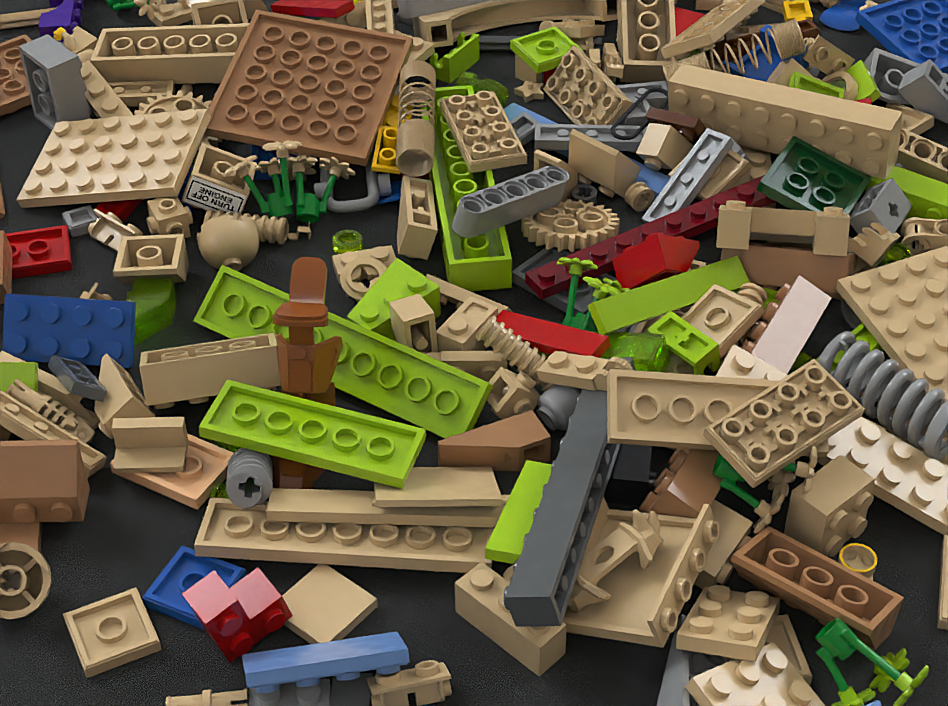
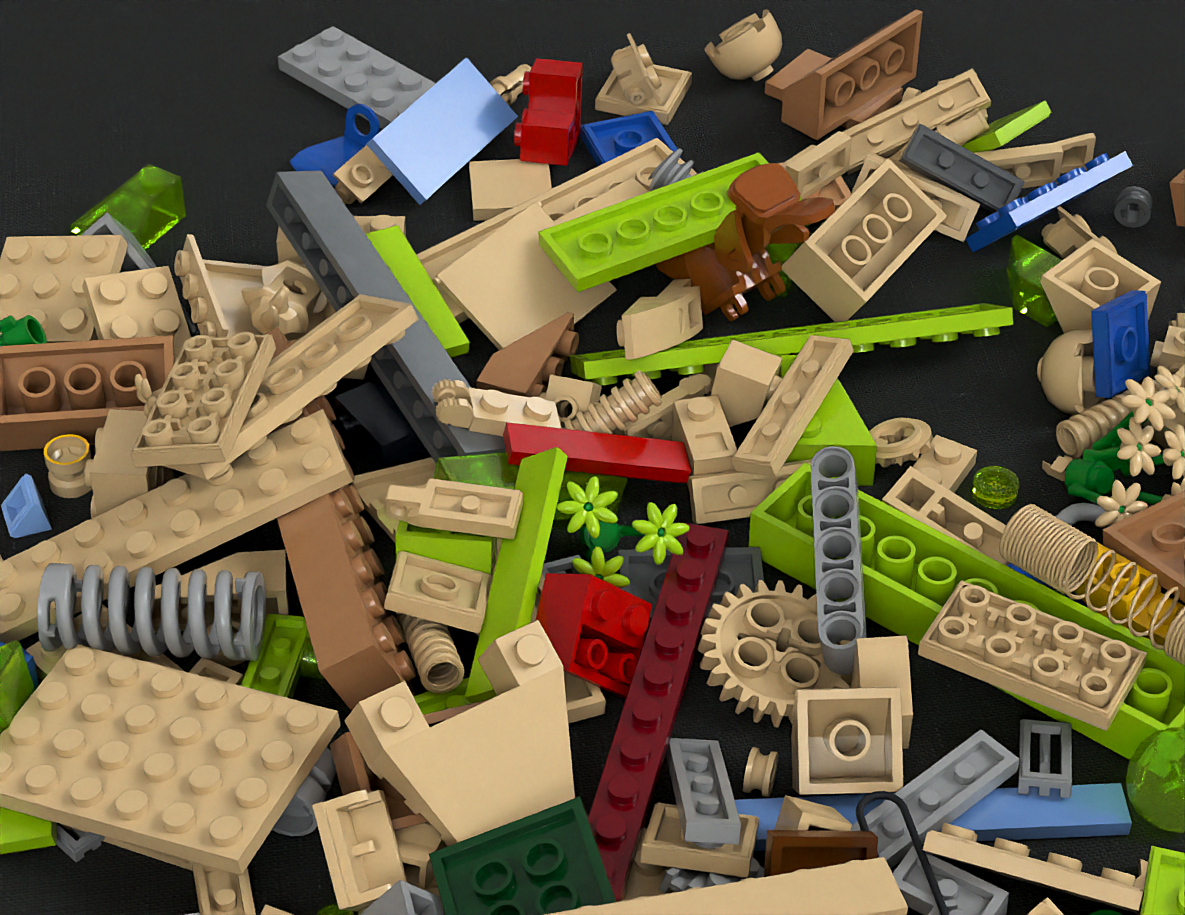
camera: 135 degrees right, 0 degrees up
(103, 629) = (636, 73): none -> tan hinge
(189, 220) = (1120, 342): none -> blue tile
(410, 377) = (661, 321): none -> tan slope
(431, 284) = (792, 406): none -> tan tile
(676, 323) = (457, 507): none -> tan hinge
(904, 567) = (25, 509): none -> light blue slope

